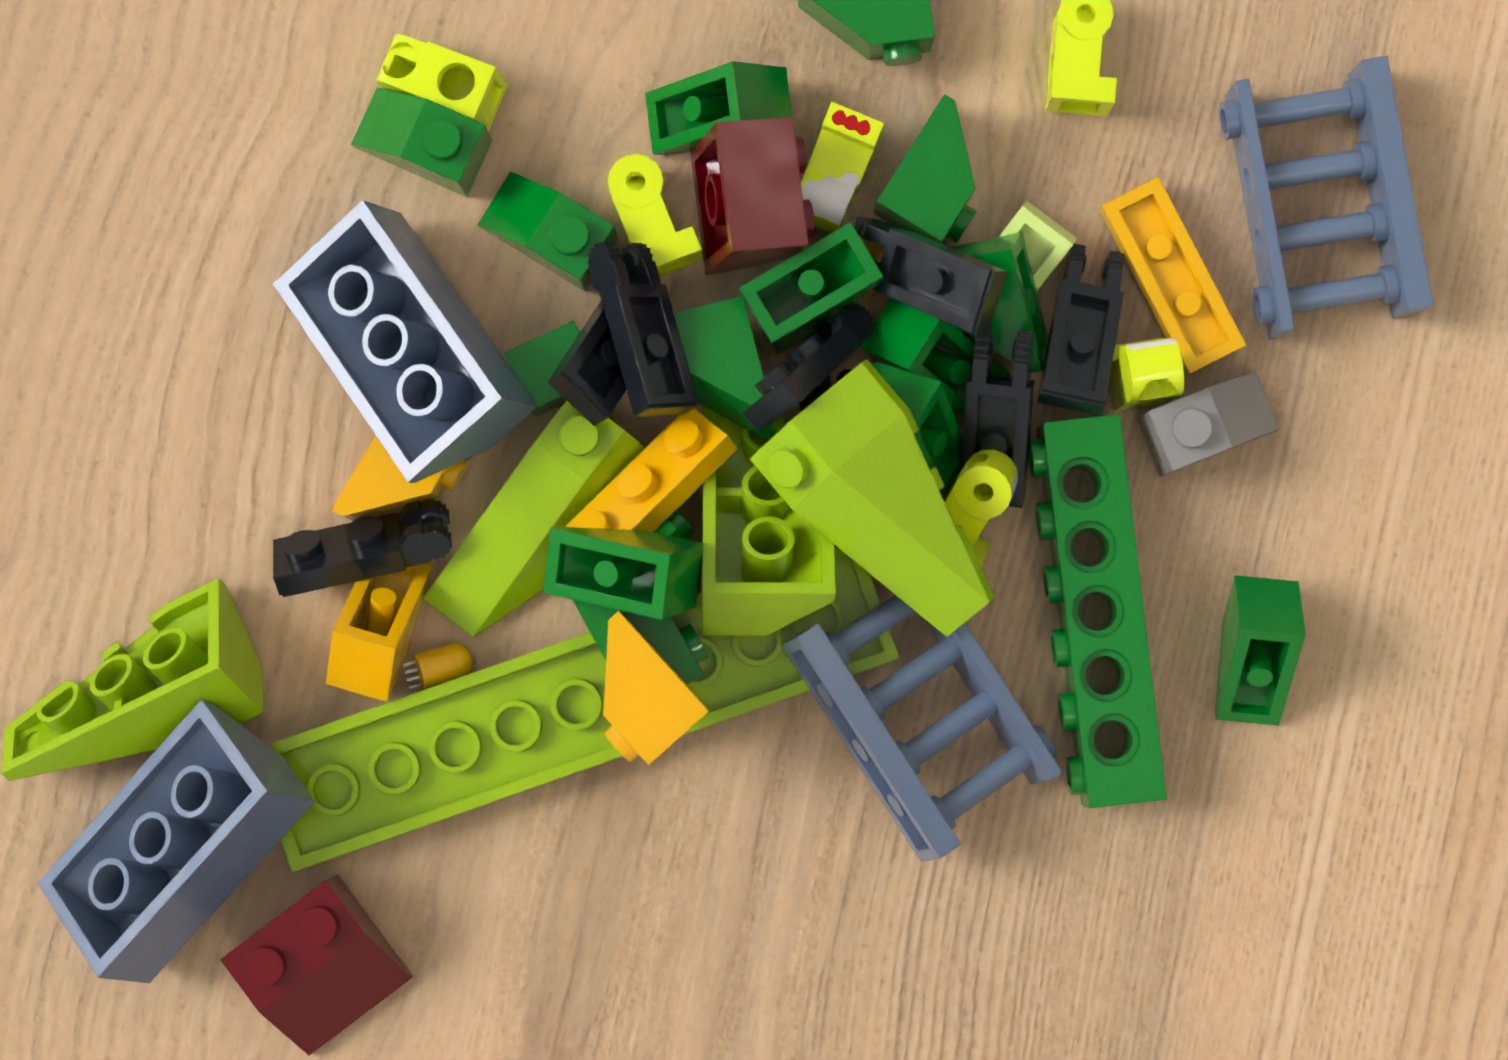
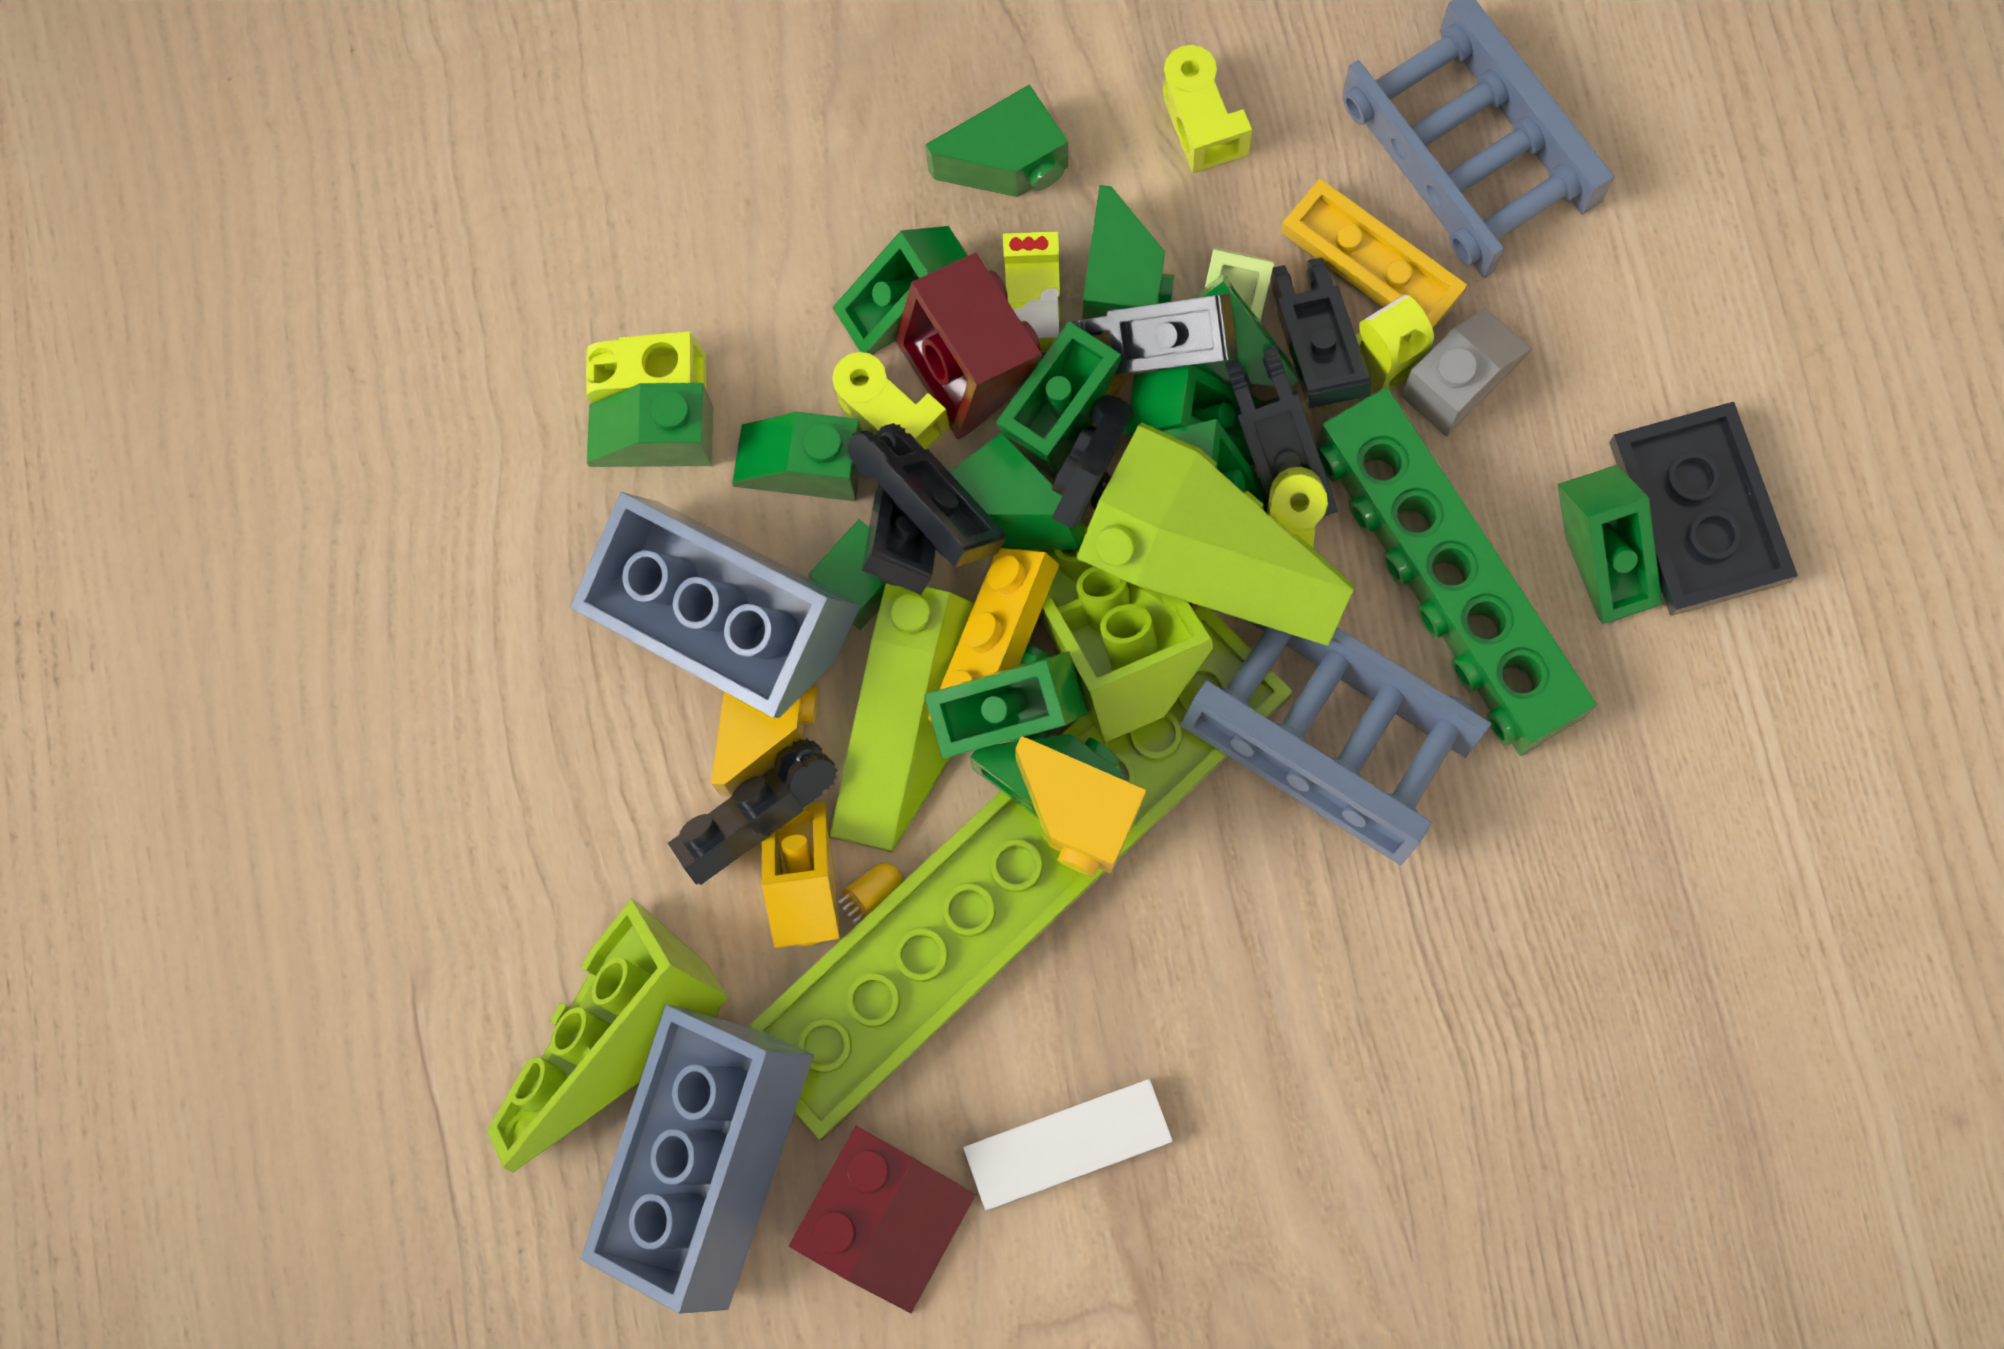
camera: 15 degrees left, 10 degrees down
(511, 972) = (1067, 1145): none -> white tile
(1360, 655) = (1707, 508): none -> black plate

